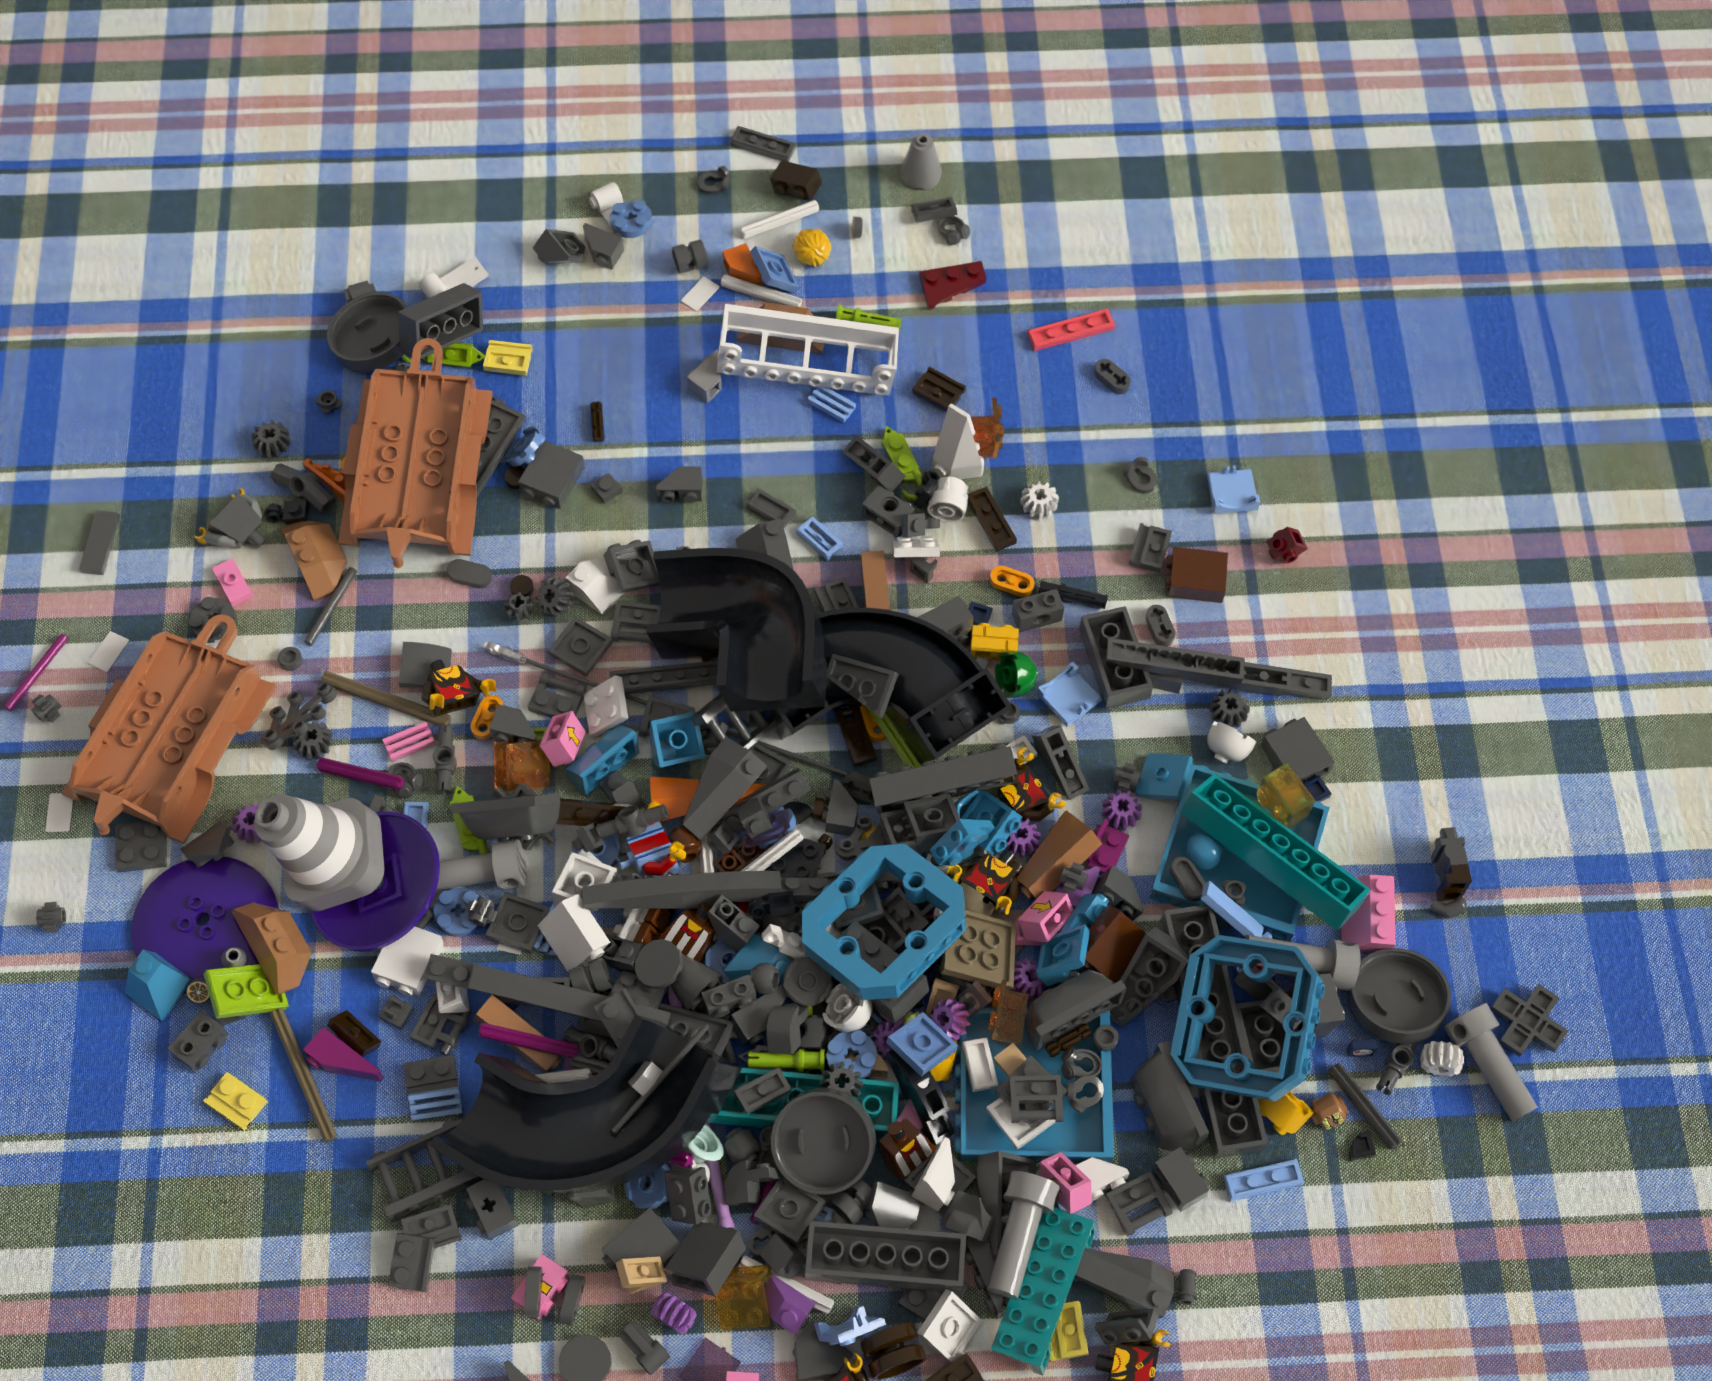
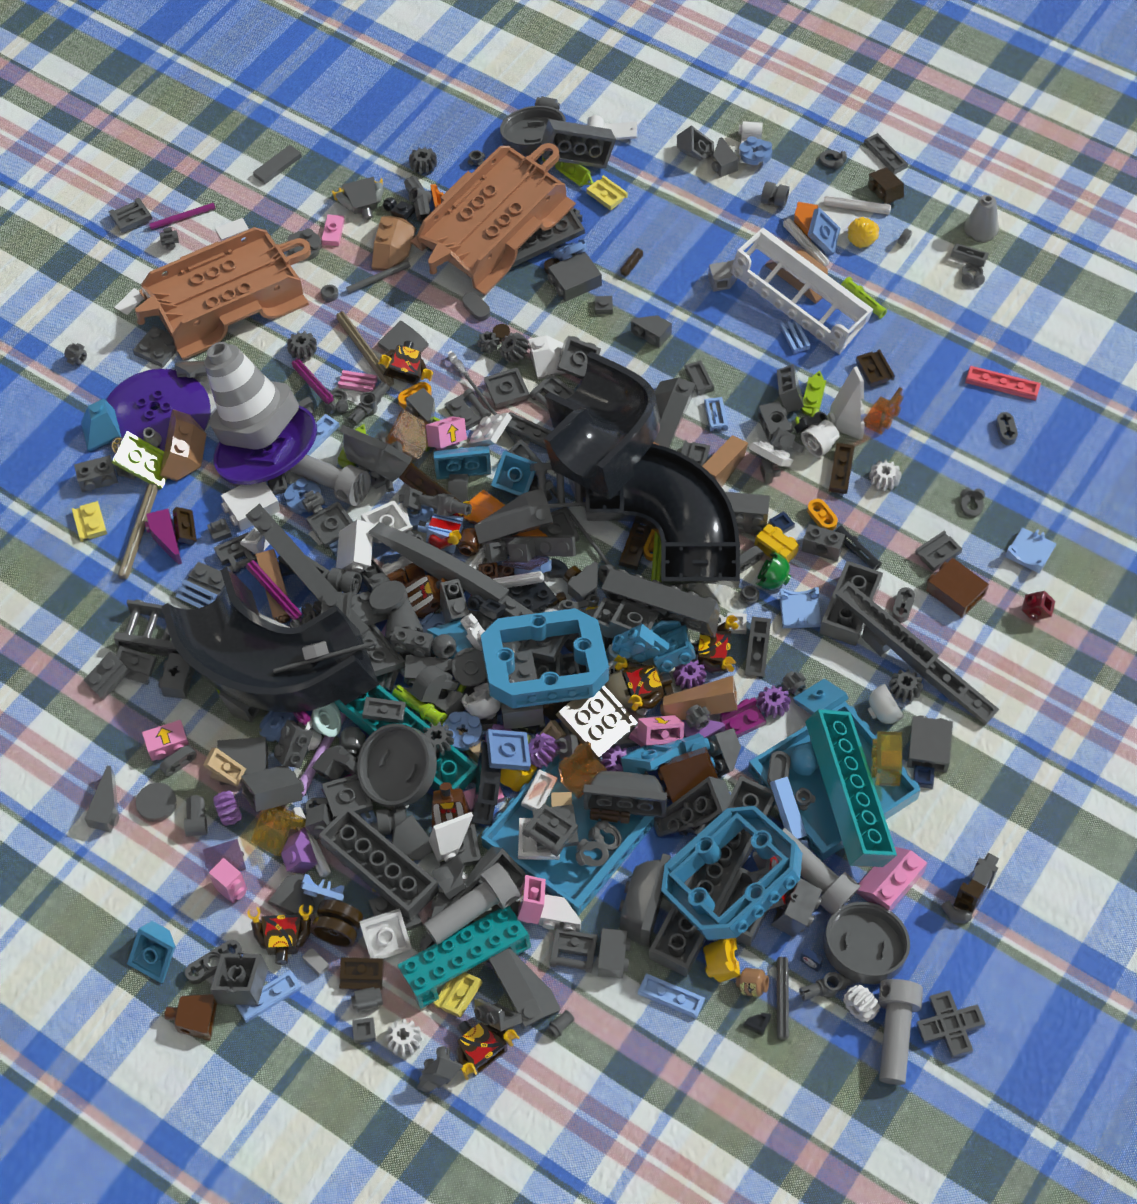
camera: 40 degrees right, 5 degrees down
(296, 717) = (307, 325): dark grey plant -> none
(533, 1291) = (155, 735): dark grey beam -> none
(700, 293) = (766, 222): white sticker -> none
(863, 681) = (653, 504): dark grey wing -> none
(946, 282) = (941, 305): dark red wing -> none
(1105, 1038) = (635, 830): dark grey tile -> none

